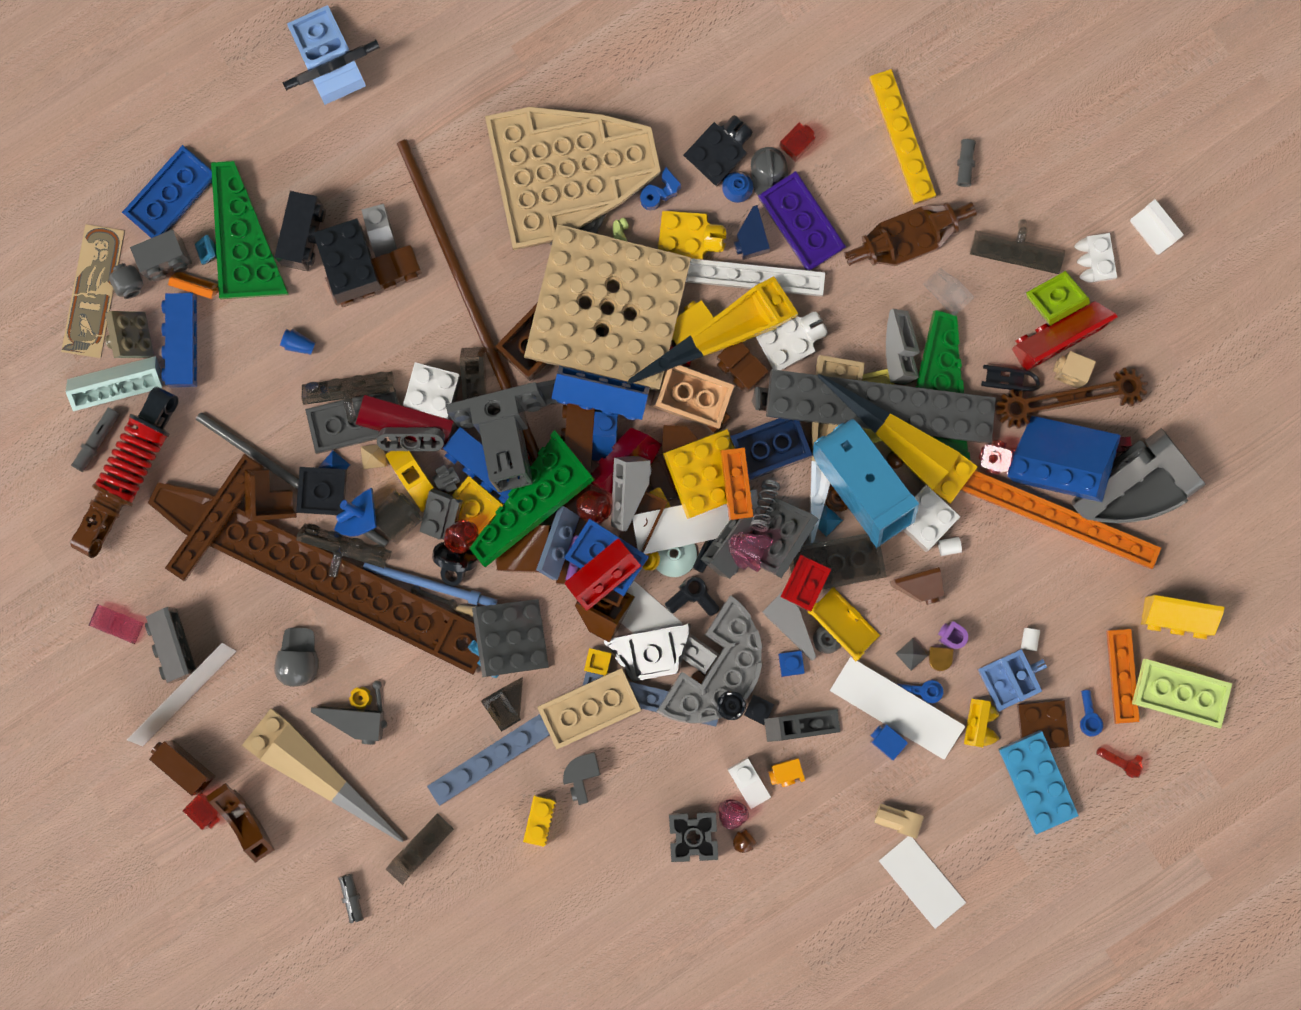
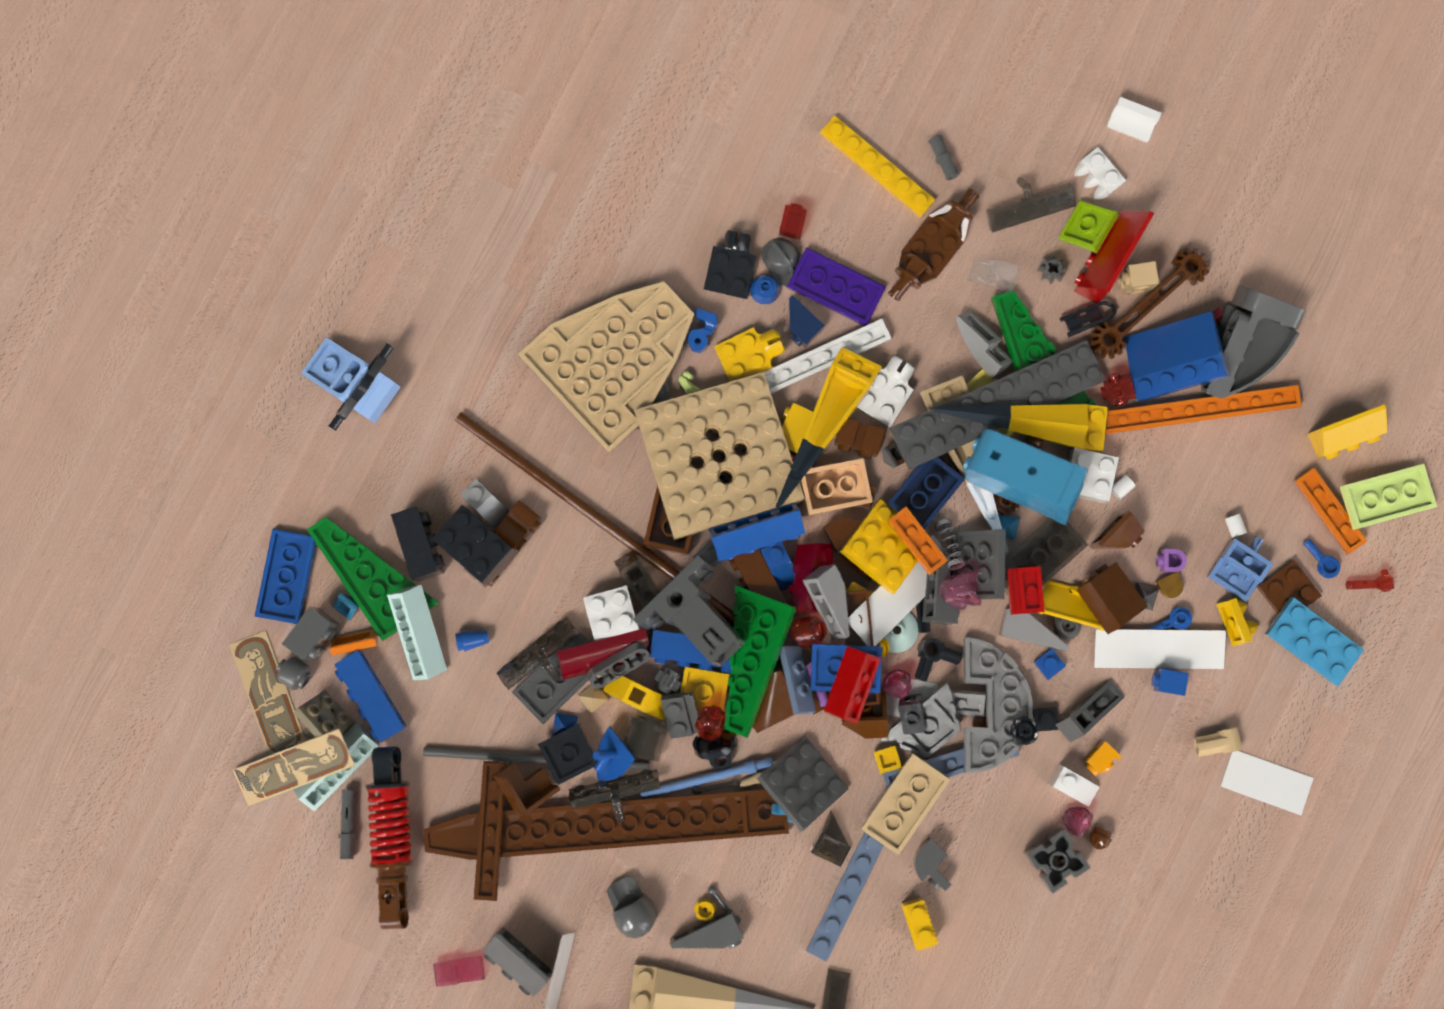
camera: 30 degrees left, 0 degrees up
(77, 362) = (293, 767): none -> sticker
(253, 308) = (417, 632): none -> light aqua brick
(642, 634) = (911, 714): none -> black bracket
(646, 601) = (897, 683): none -> clear pink cone
(880, 635) = (1111, 597): none -> reddish brown brick
(999, 322) = (1049, 264): none -> dark grey gear

